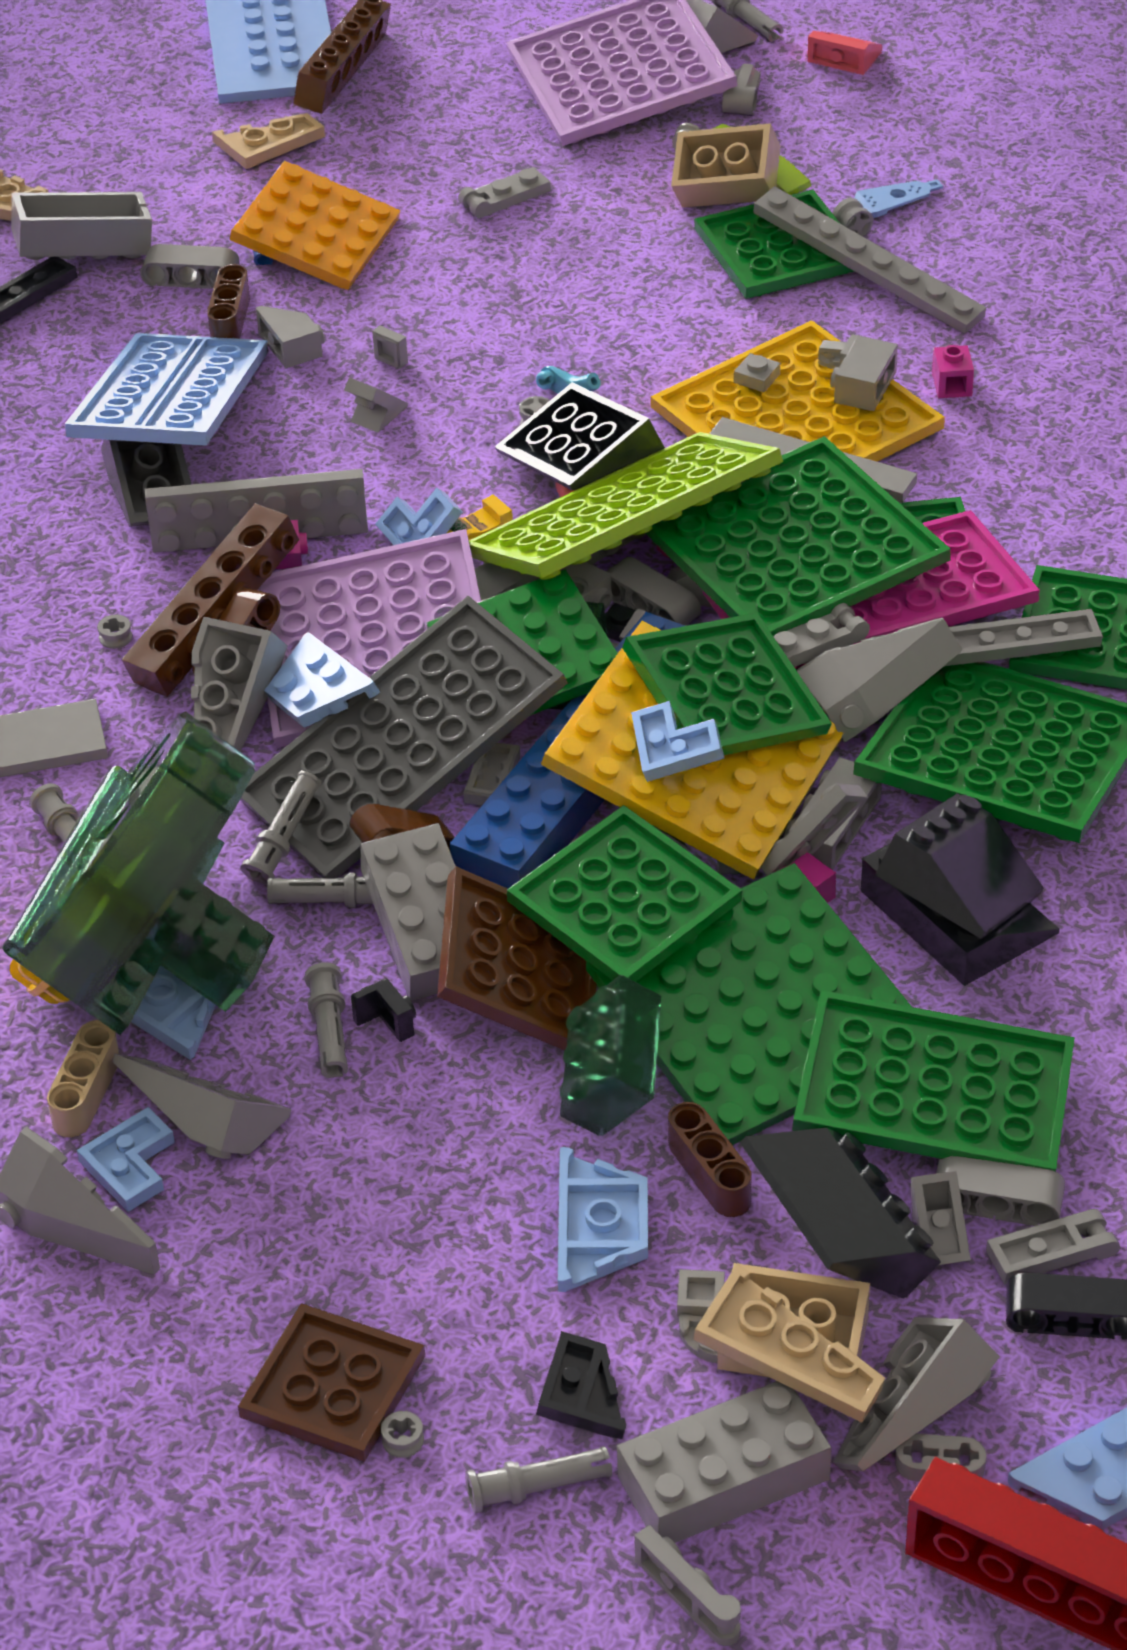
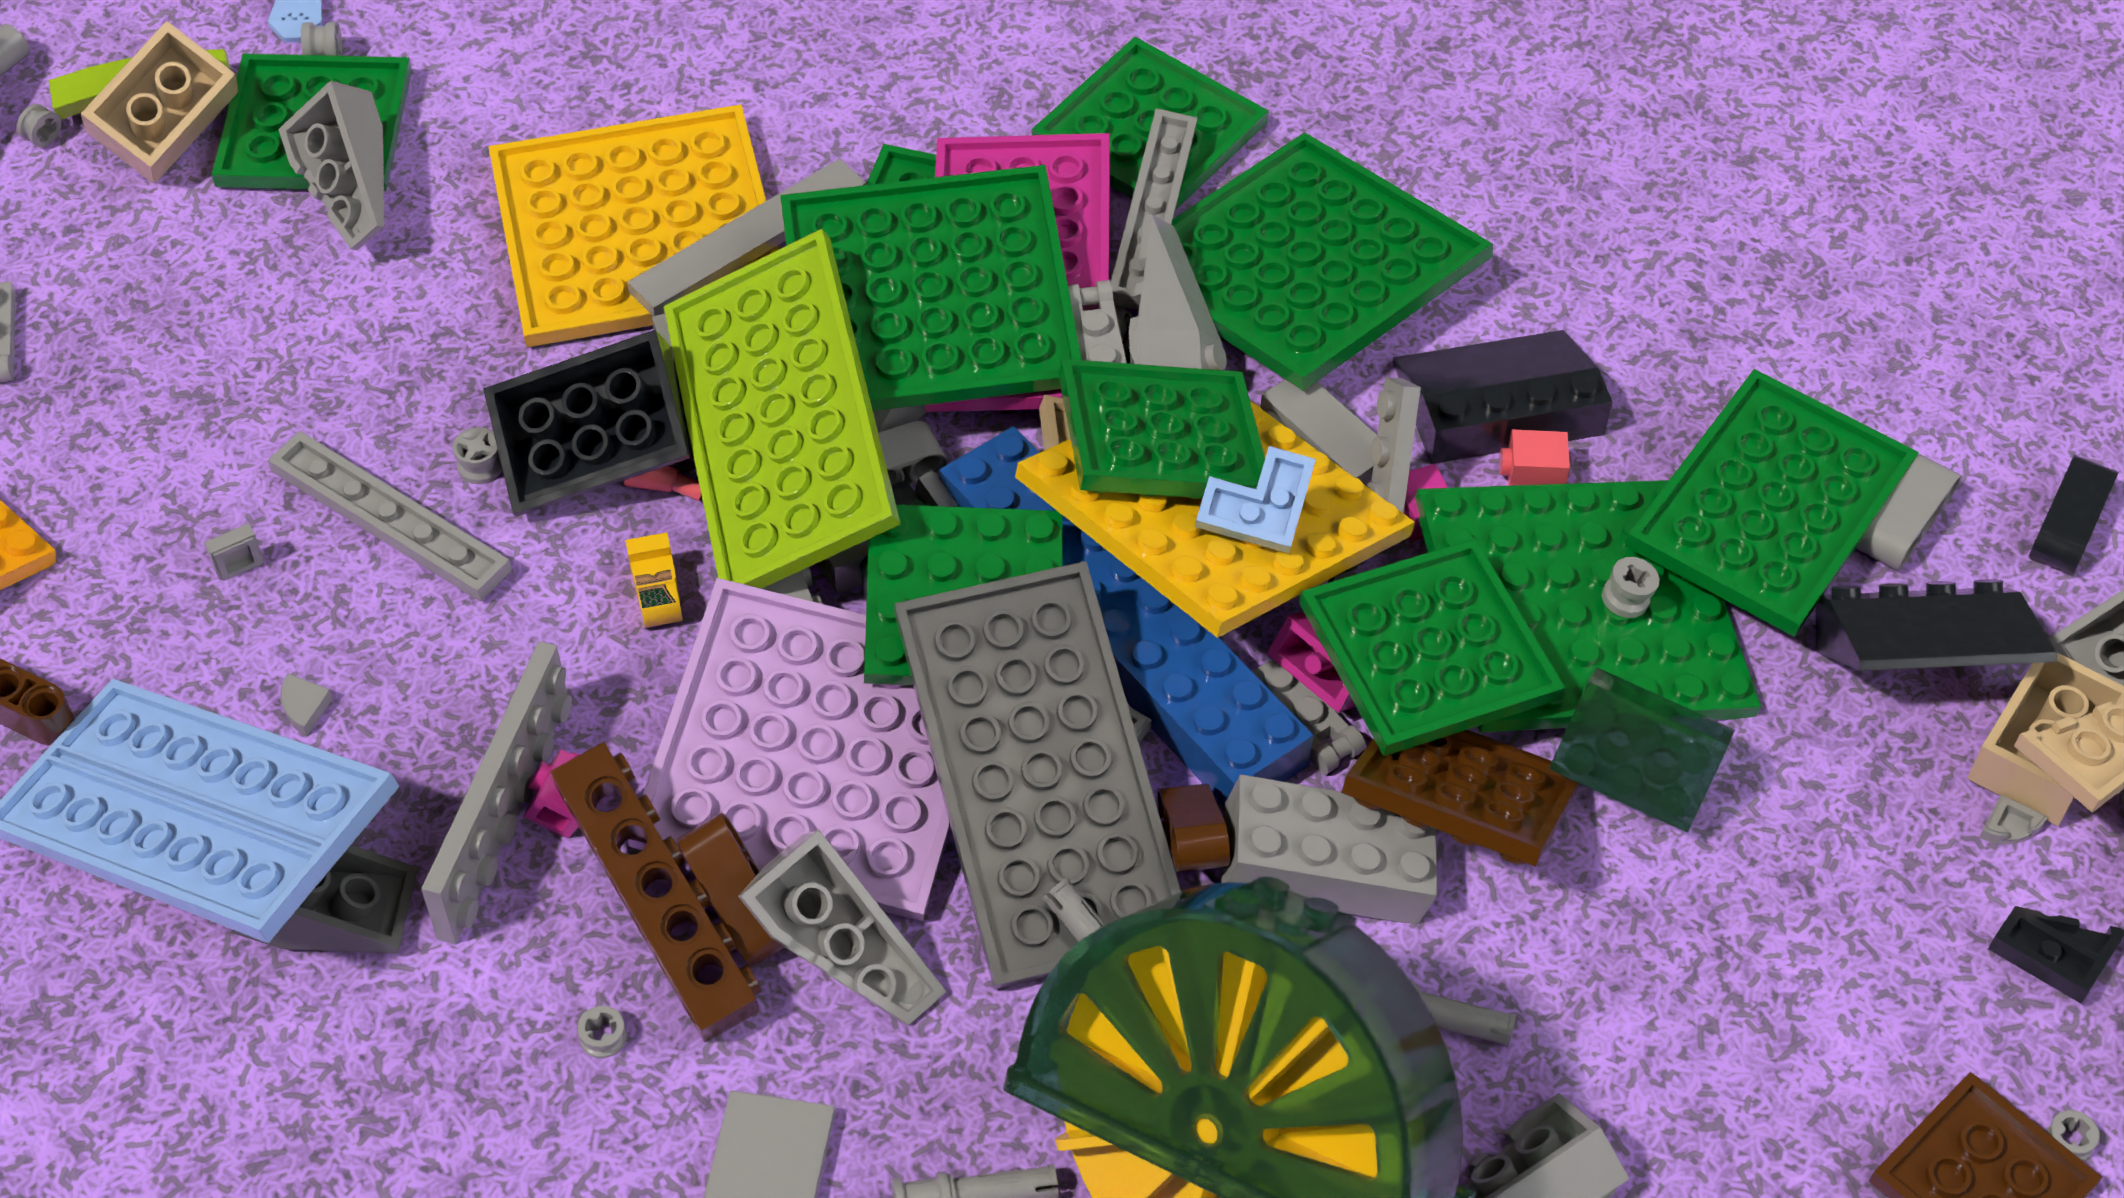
camera: 70 degrees left, 10 degrees up
(290, 335) = (126, 647): light grey slope -> none
(295, 422) = (303, 702): none -> light grey tile
(316, 683) = (898, 823): light blue wing -> none
(374, 407) = (342, 609): light grey slope -> none
(387, 1003) = (1445, 939): black bracket -> none
(434, 518) = (633, 645): light blue plate -> none
(462, 400) = (390, 516): none -> light grey plate
(557, 380) = (435, 405): medium azure arm -> none
(599, 1220) = (1831, 854): light blue wing -> none
(698, 1290) = (1964, 801): light grey plate -> none
(709, 1159) = (1816, 725): reddish brown beam -> none
(750, 249) = (340, 154): none -> light grey wedge
(757, 372) = (559, 225): light grey plate -> none
(773, 1017) = (1630, 587): none -> light grey wheel
(860, 369) = (634, 131): light grey hinge -> none
(870, 260) = (420, 55): light grey plate -> none
(891, 940) = (1535, 458): none -> coral brick
(940, 1214) = (1941, 559): light grey slope -> none
(952, 371) = (663, 68): dark pink brick -> none
(961, 866) = (1493, 359): black slope -> none
(1052, 1245) = (1990, 502): light grey plate -> none

